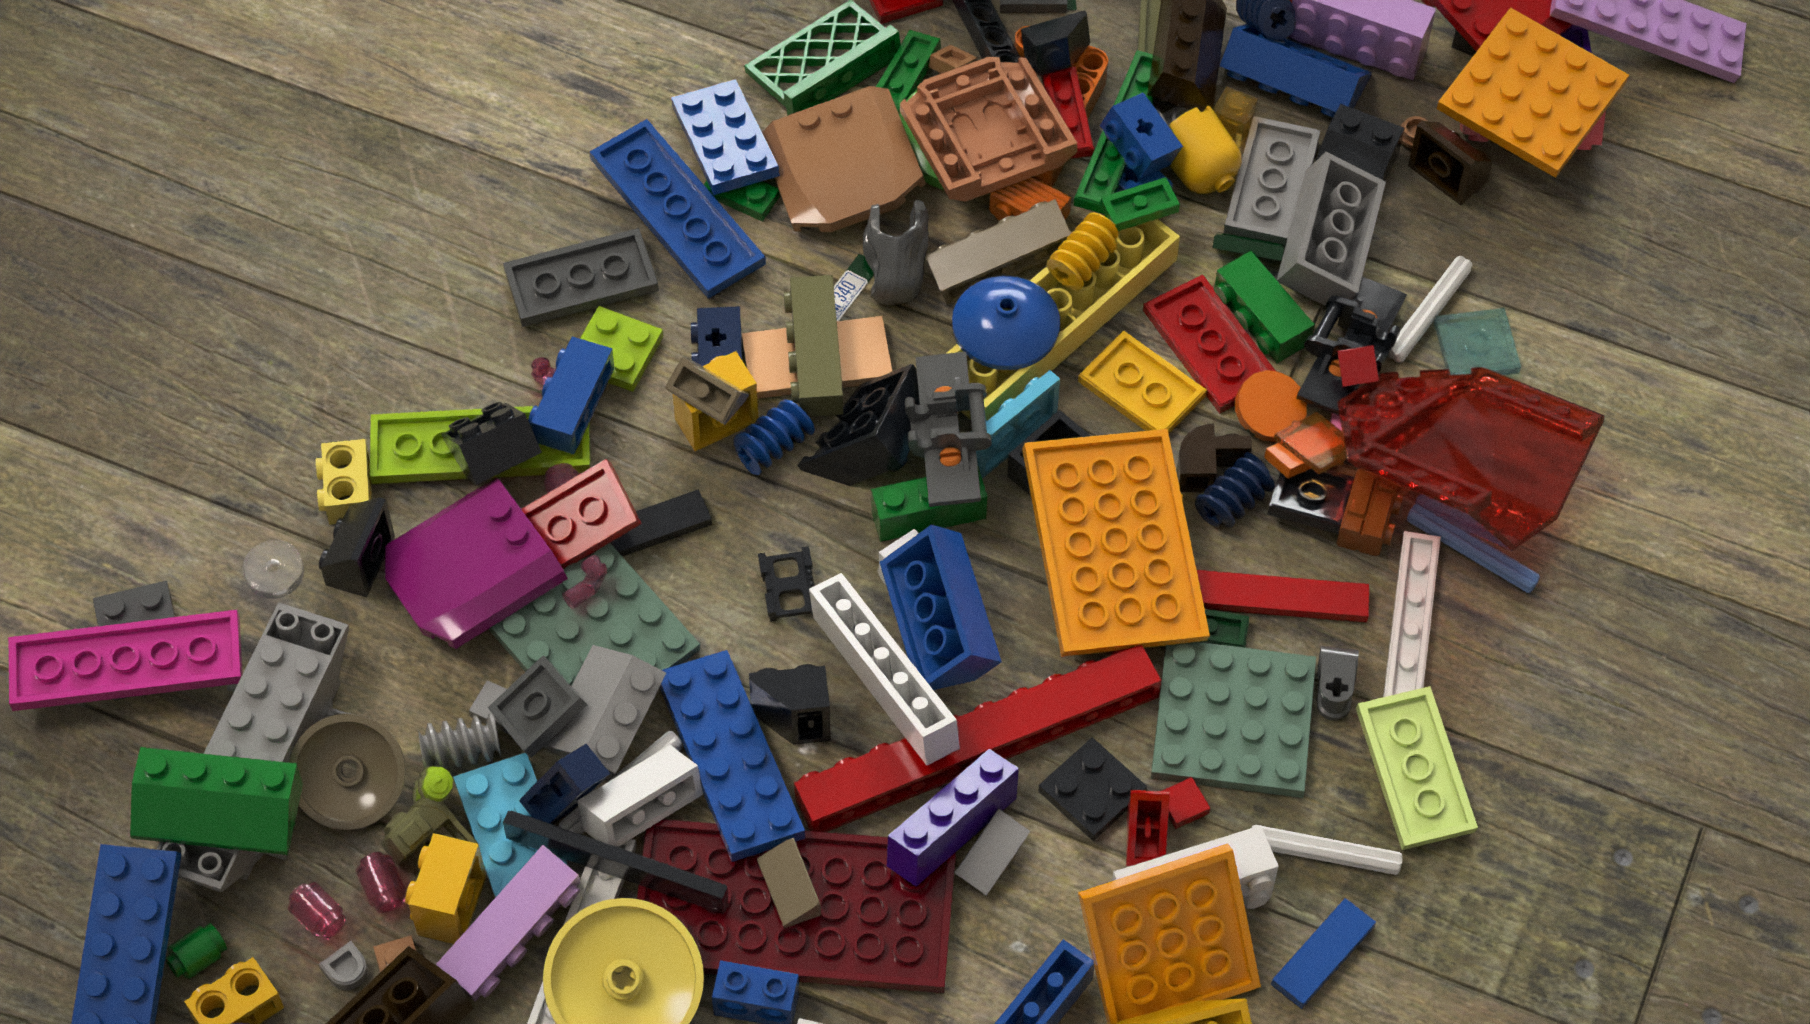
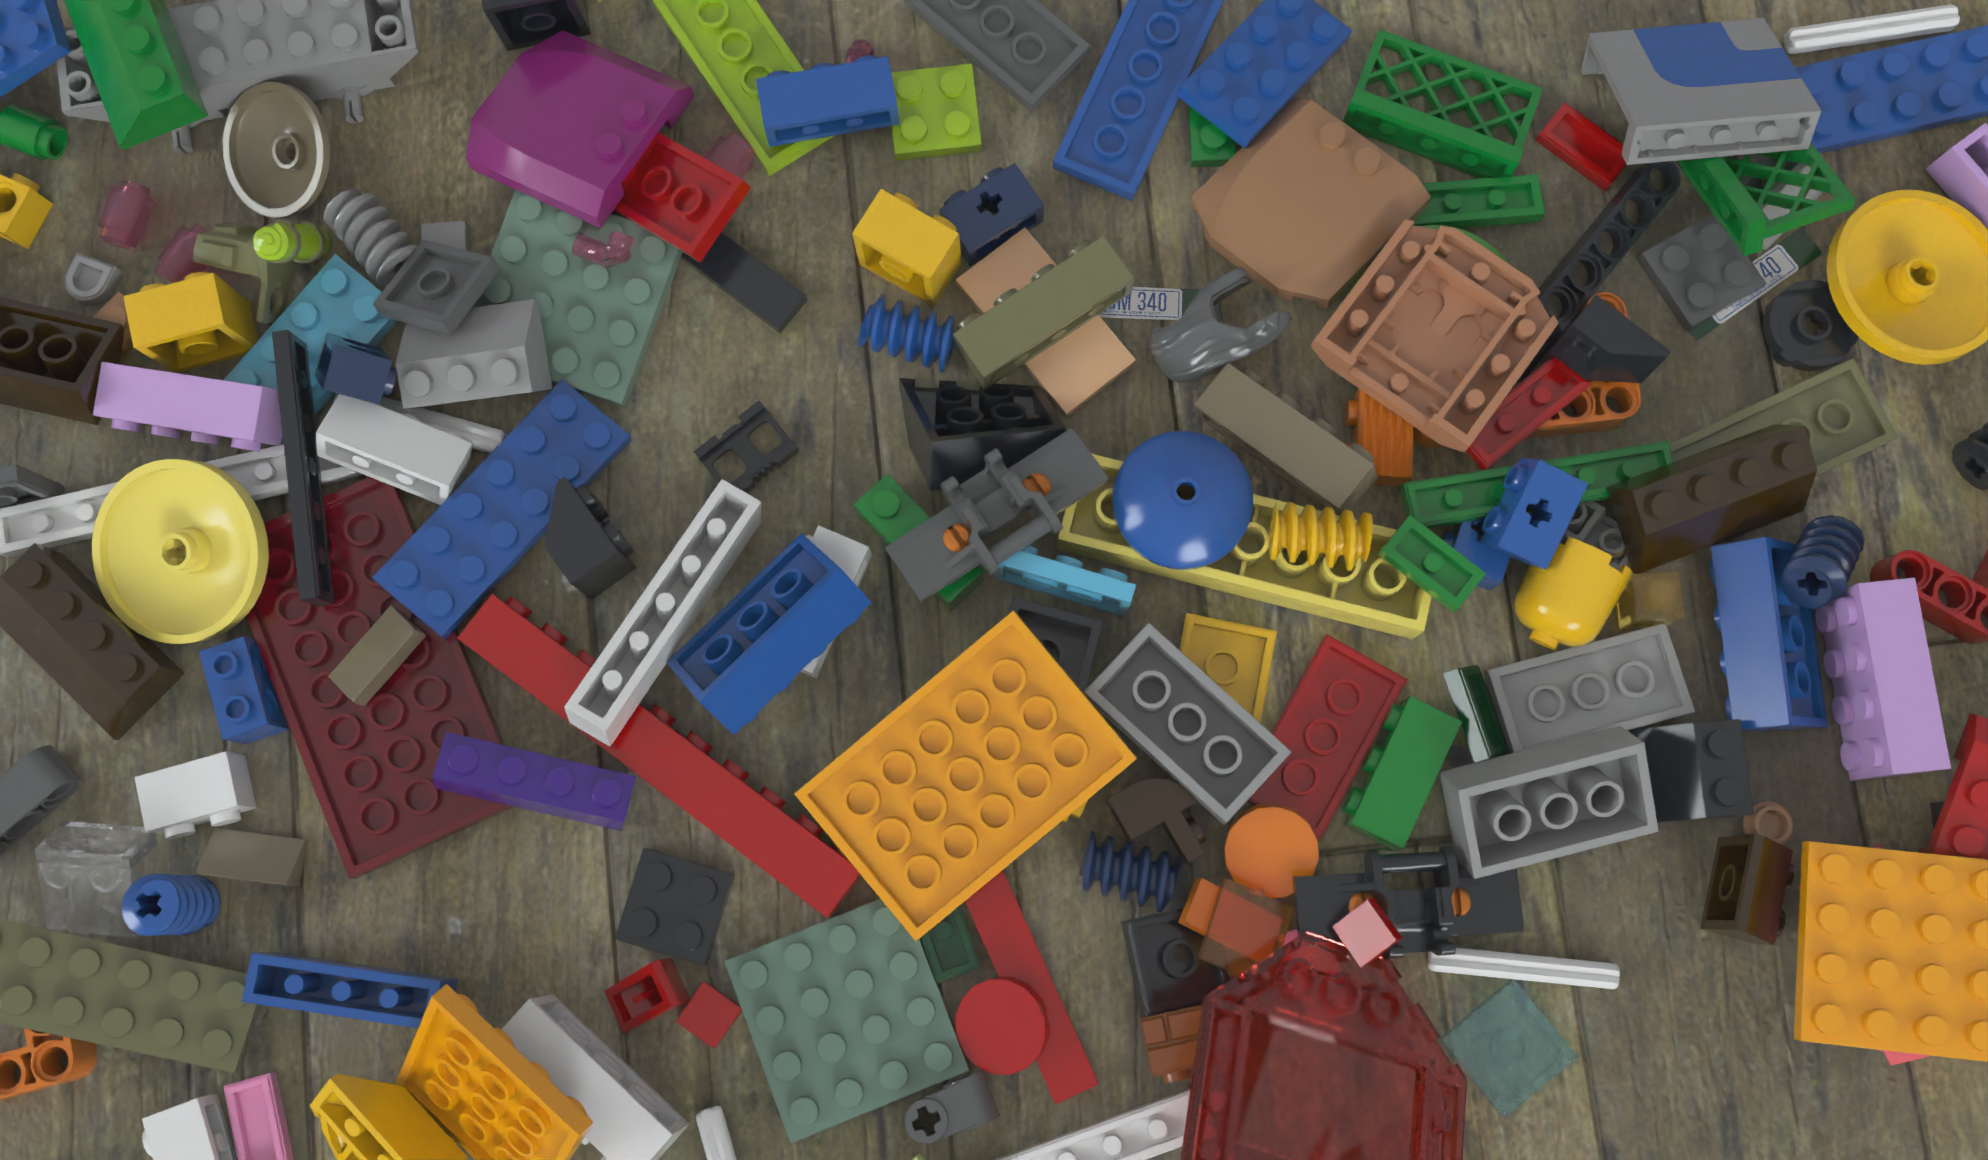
camera: 65 degrees right, 20 degrees up
(491, 441) = (721, 55): black slope -> none
(705, 390) = (886, 231): dark tan slope -> none
(949, 59) = (1524, 245): medium nougat plate -> none
(992, 852) = (535, 842): light grey slope -> none
(1161, 393) = (1186, 723): none -> light grey brick
(1297, 618) = (1002, 1025): none -> red tile

